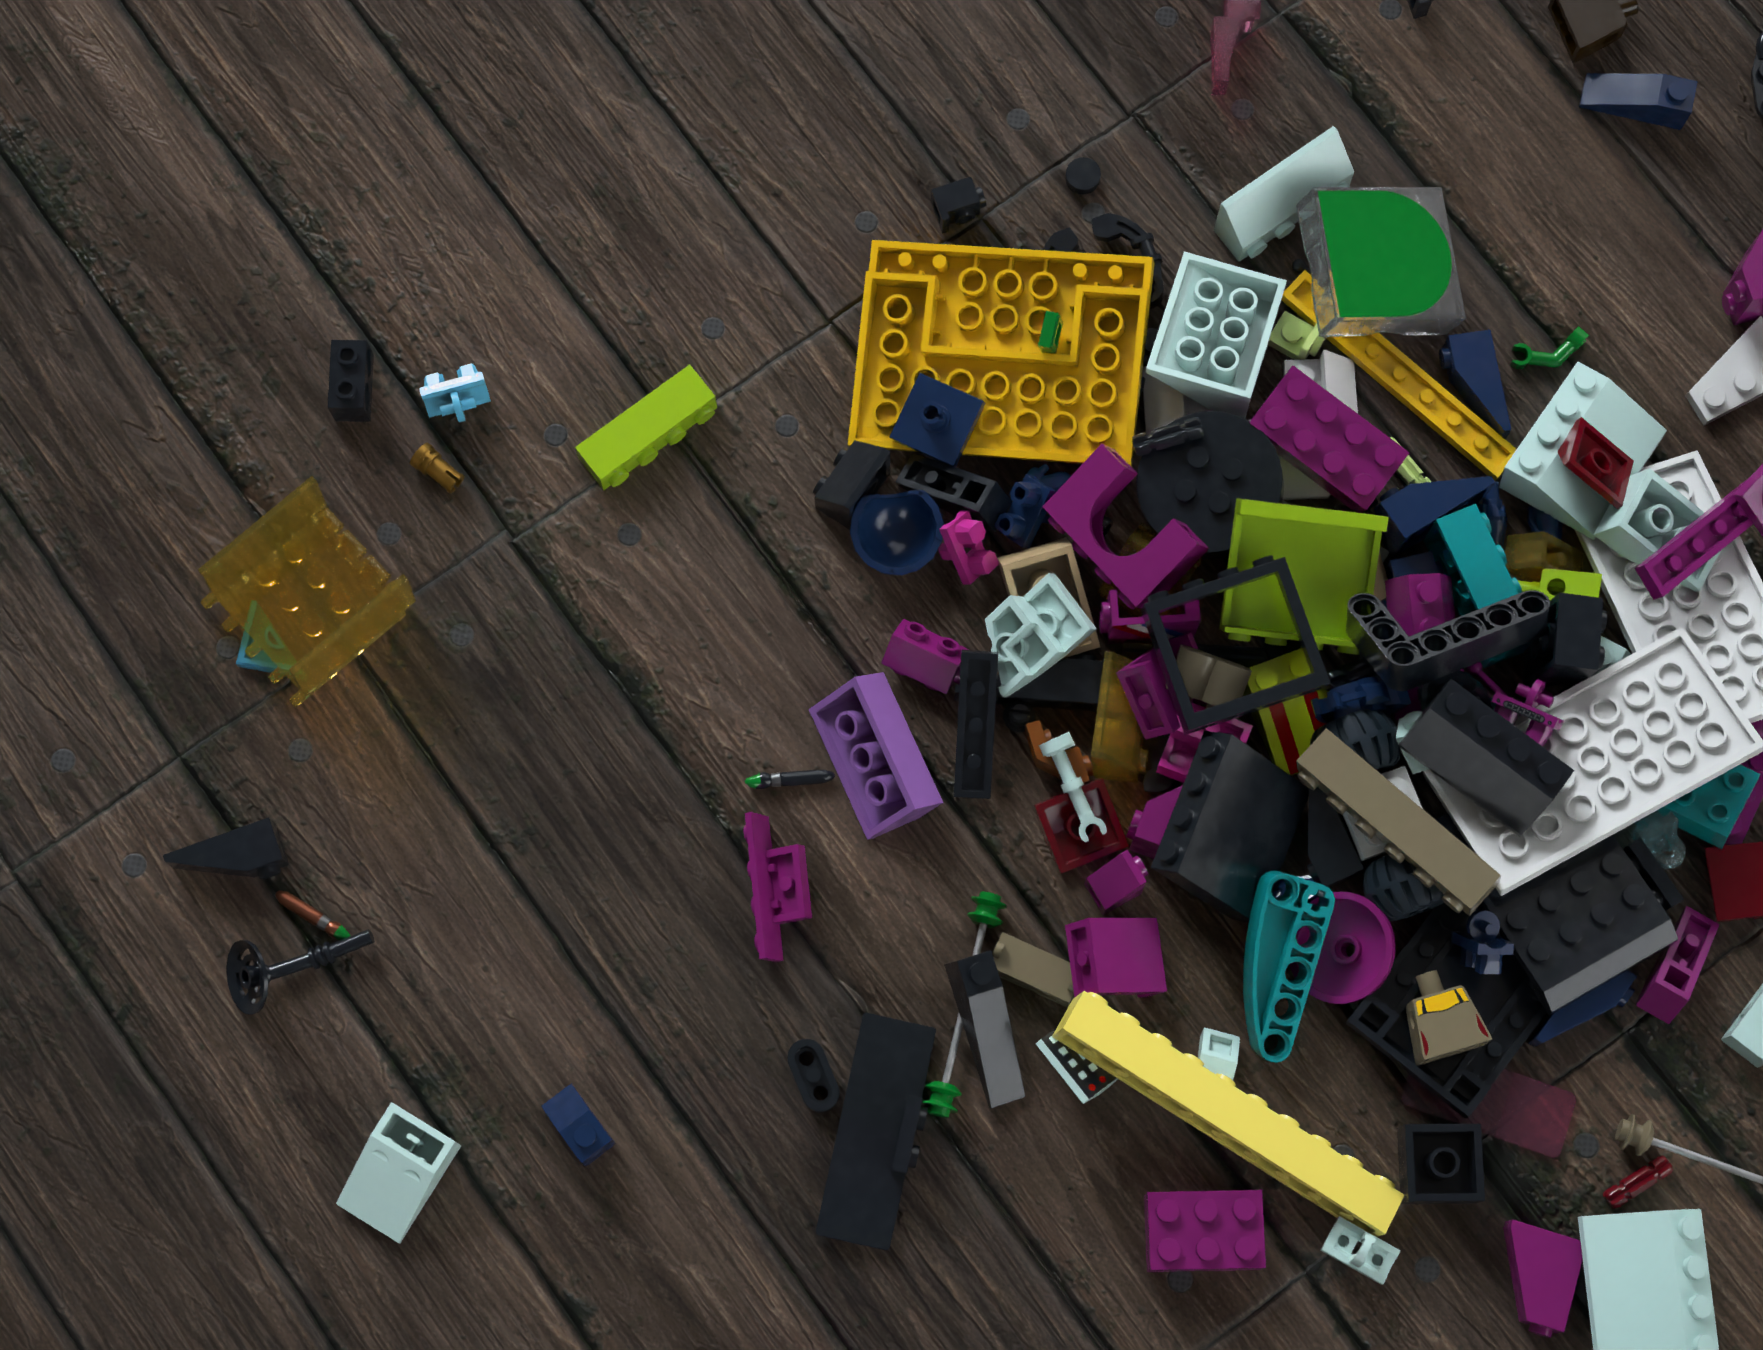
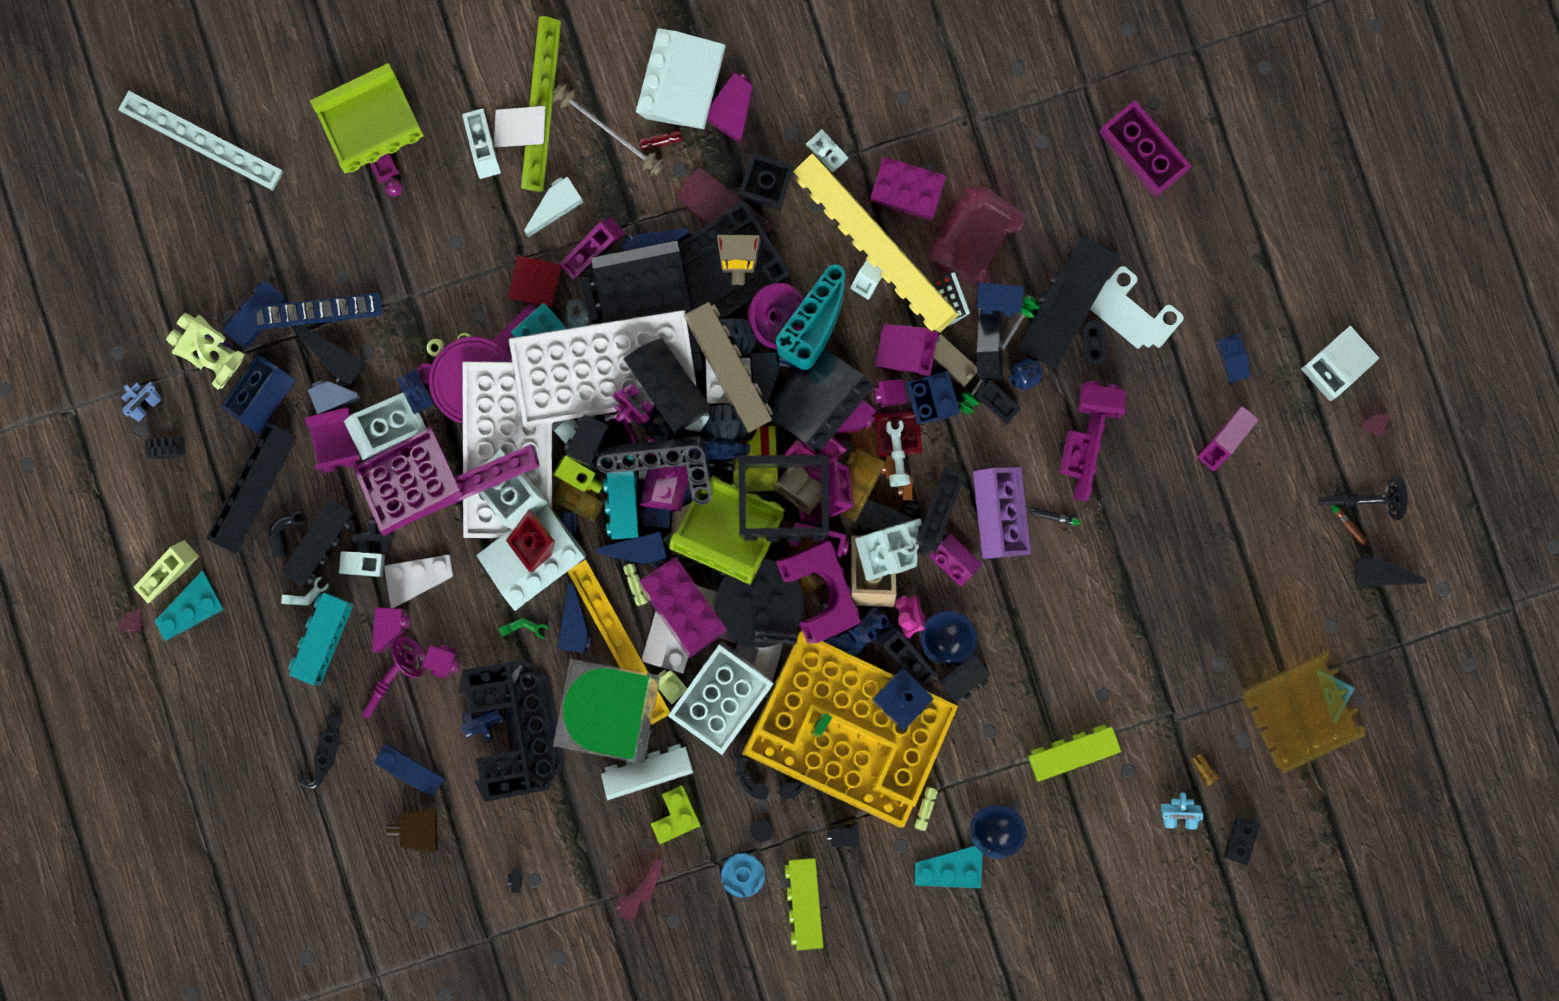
camera: 160 degrees left, 10 degrees up
(312, 1093) = (1376, 424): none -> clear pink tile
(547, 989) = (1228, 438): none -> magenta slope
(727, 274) = (998, 831): none -> dark blue cylinder
(769, 1139) = (1130, 319): none -> light aqua piece
(772, 982) = (1102, 400): none -> magenta slope
(774, 209) = (953, 869): none -> teal wing
(846, 281) = (926, 808): none -> yellowish green axle
(908, 987) = (1026, 374): none -> dark blue head
(940, 926) = (997, 402): none -> black plate
(981, 92) = (805, 904): none -> lime brick
(995, 1088) = (999, 298): none -> dark blue brick
(1046, 896) = (933, 398): none -> dark blue slope
(1068, 1186) = (974, 234): none -> clear pink windscreen
(1087, 107) = (743, 875): none -> dark azure tile
(1211, 152) = (682, 817): none -> lime brick
(1482, 947) = (701, 288): dark blue hips -> none
(1485, 224) = (529, 724): none -> black slope
(1496, 513) = (596, 538): dark blue piece -> none
(1554, 191) = (473, 726): none -> dark blue hips
(1656, 257) = (442, 661): none -> magenta brick
(1712, 241) = (401, 661): none -> magenta dish

